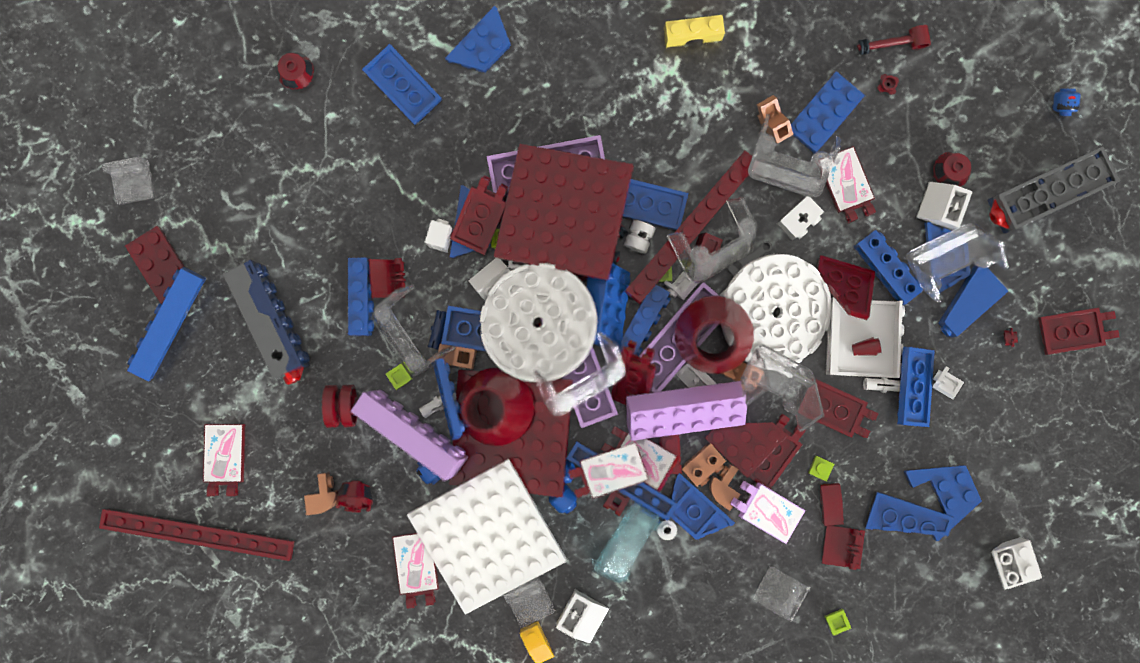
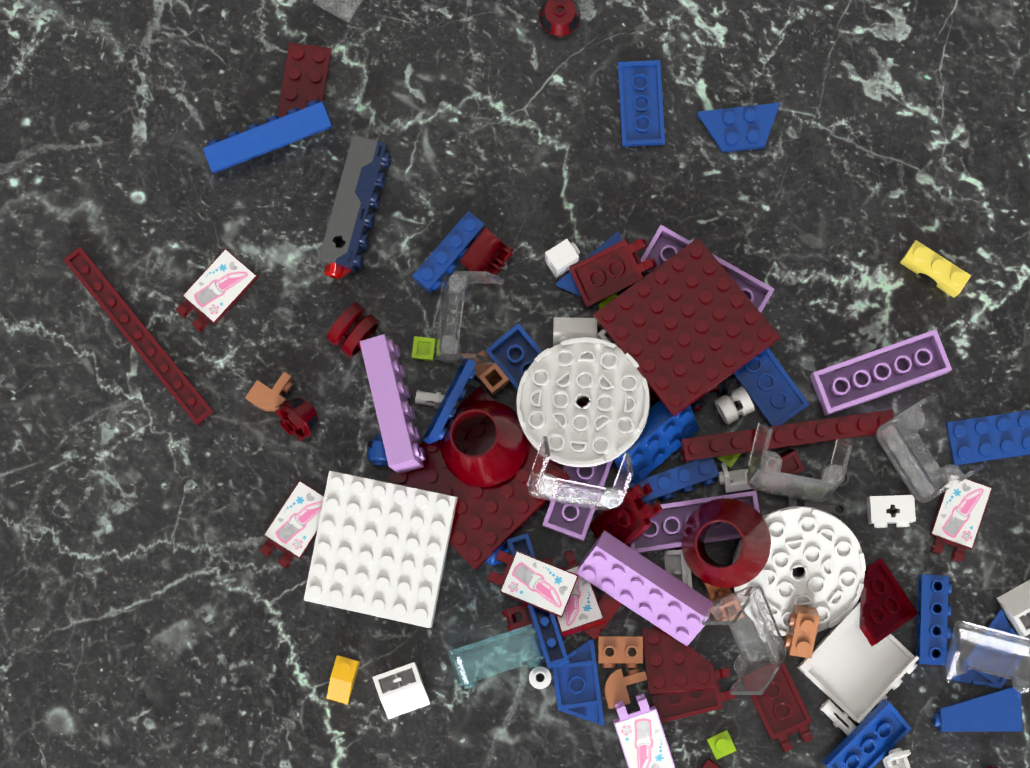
camera: 45 degrees right, 5 degrees down
(437, 330) = (490, 337): dark blue pin -> none
(530, 602) = (367, 639): clear bracket -> none
(565, 503) = (471, 578): blue head -> none
(717, 131) = (880, 372): none -> lavender brick
(778, 125) = (940, 409): nougat brick -> none
(812, 349) = (802, 631): none -> nougat brick
(867, 347) = (853, 673): dark red cone -> none

